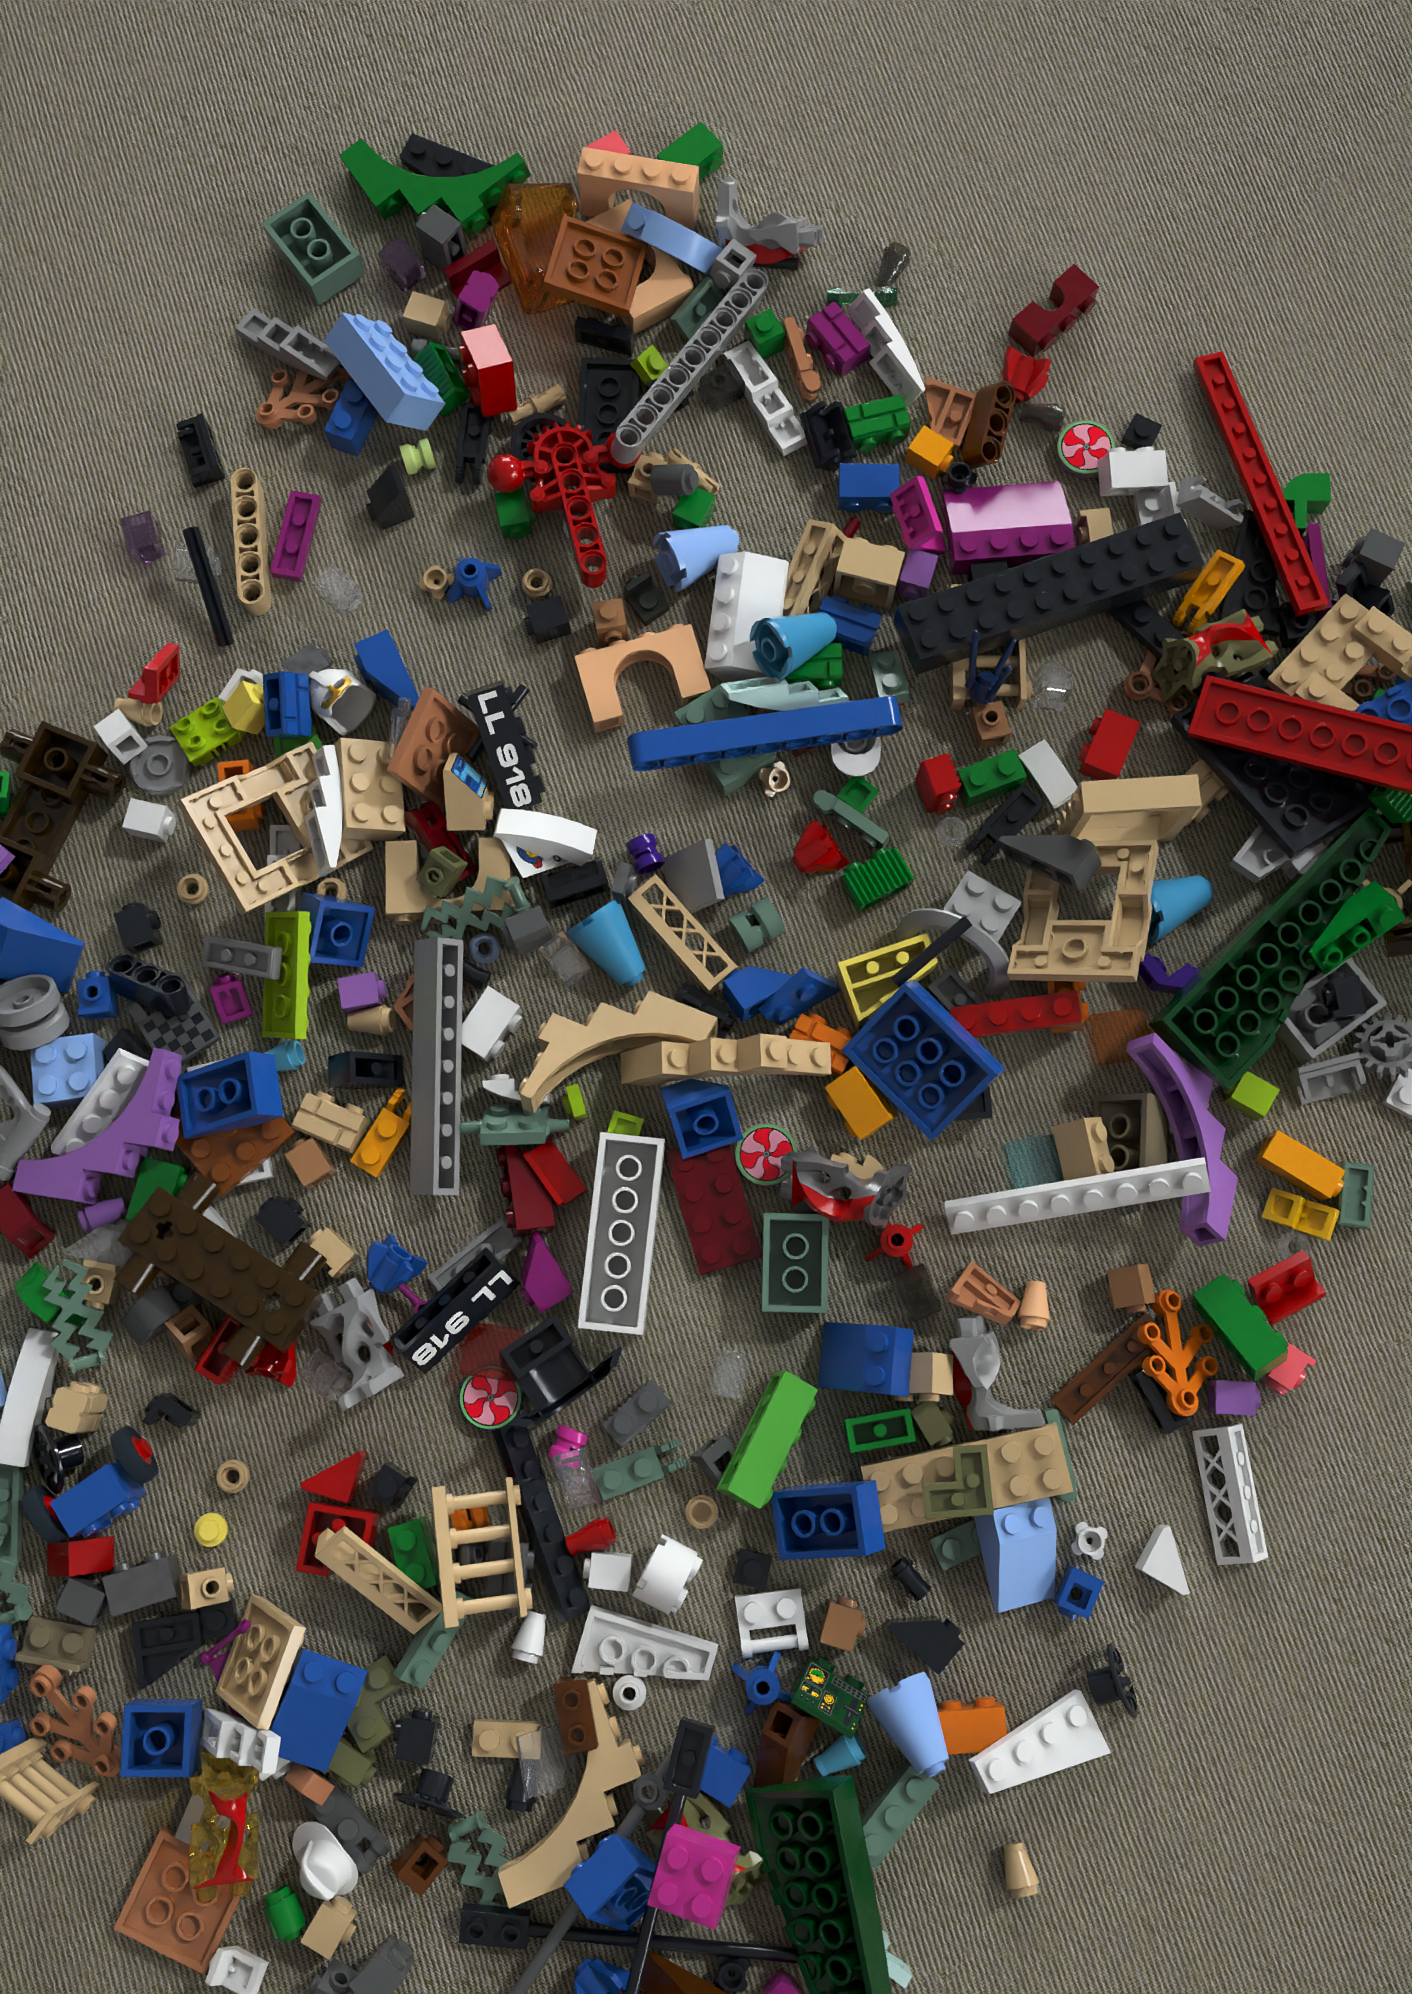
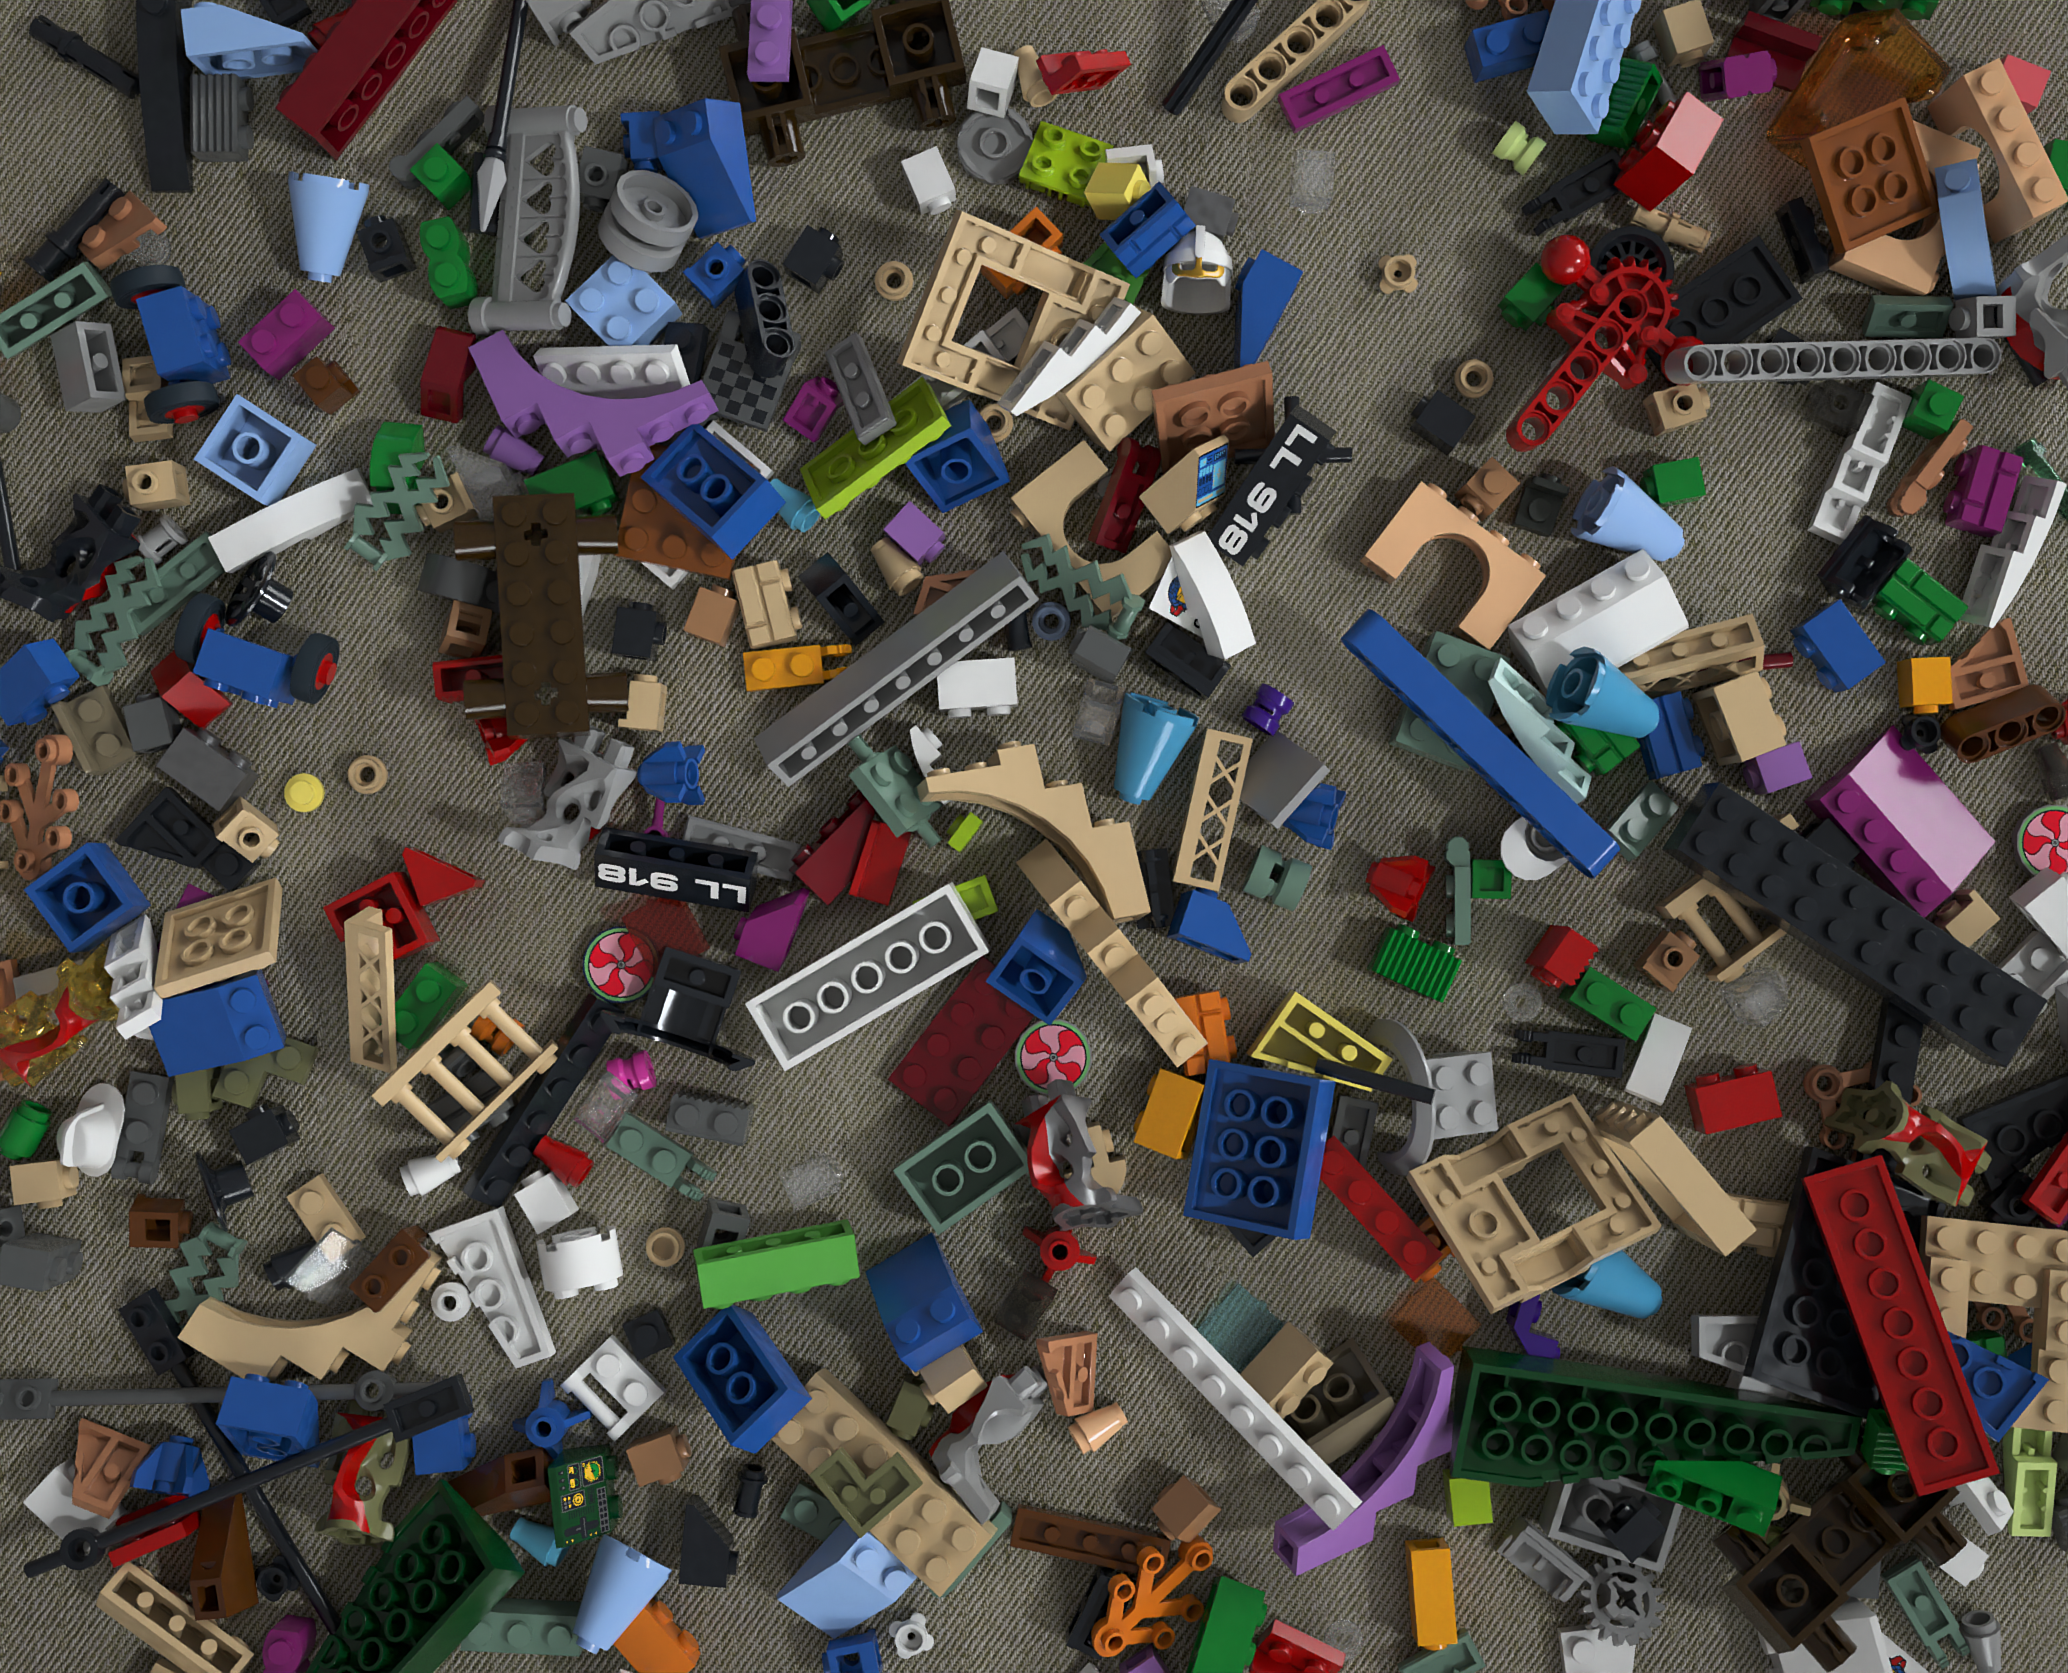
camera: 50 degrees right, 10 degrees up
(77, 1408) = (315, 579): tan brick -> none
(177, 1411) = (386, 673): black bracket -> none
(206, 1656) = (238, 895): magenta hinge -> none
(309, 1783) = (148, 1068): nougat piece -> none
(389, 500) = (1447, 156): black slope -> none
(391, 1485) = (470, 934): black brick -> none
(399, 721) = (1213, 362): clear cylinder -> none
(428, 1648) = (350, 1082): sand green plate -> none
(449, 869) = (1102, 526): olive brick -> none
(473, 580) = (1421, 318): blue brick -> none
(624, 882) = (1220, 714): flat silver plate -> none
(649, 364) = (1804, 314): lime plate -> none
(673, 479) = (1690, 440): dark grey brick -> none
(694, 1875) = (325, 1494): dark pink brick -> none
(705, 482) = (1715, 448): tan pin -> none
(782, 778) = (1444, 791): tan plate -> none
(797, 996) = (1234, 972): blue wing -> none
(879, 1430) = (865, 1363): green brick -> none
(918, 517) = (1839, 726): dark pink bracket -> none
(986, 685) = (1701, 929): dark blue plant -> none
(1054, 856) = (1570, 1135): dark grey slope -> none
(1209, 589) = (1985, 1085): light orange hinge -> none
(1300, 1214) = (1382, 1625): yellow slope -> none

